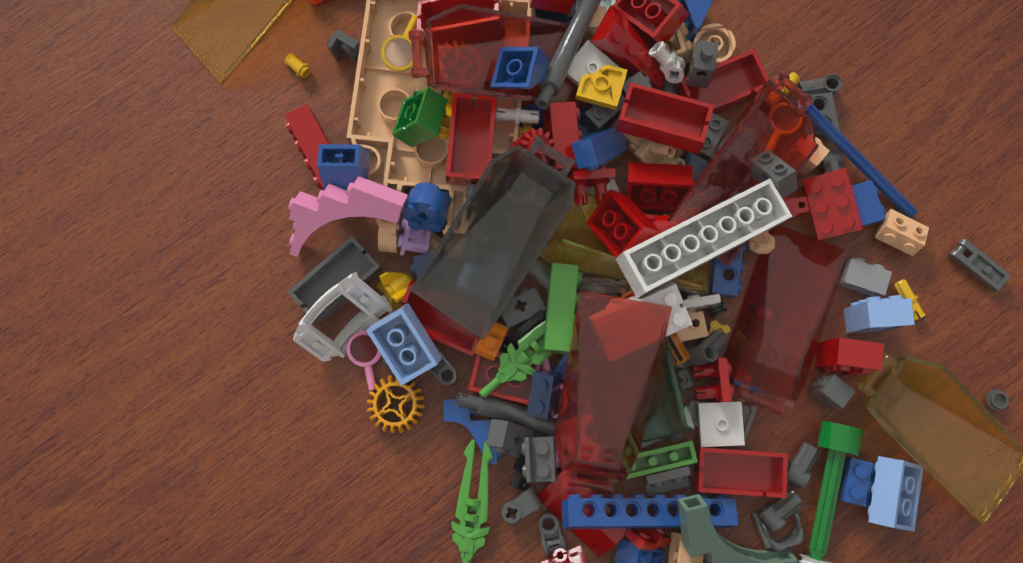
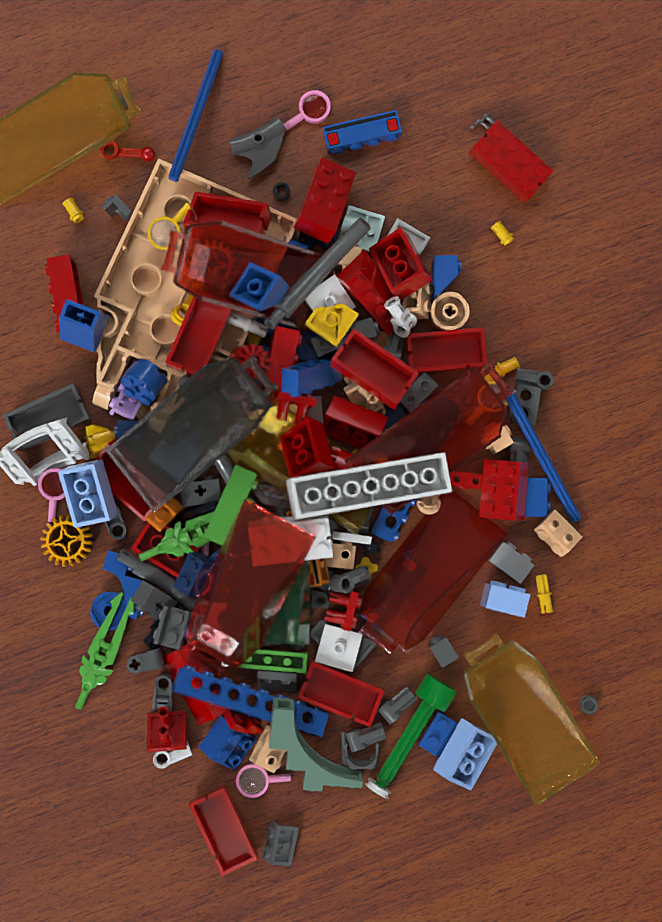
camera: 20 degrees right, 5 degrees up
(334, 203) = (65, 353): bright pink arch -> none
(420, 117) = (161, 301): green brick -> none
(452, 464) = (99, 607): none -> blue plate
(702, 59) = (427, 329): dark grey torso -> none
(769, 166) = (453, 447): dark grey brick -> none
(849, 356) = (467, 626): red brick -> none
(979, 265) = (618, 584): dark grey plate -> none

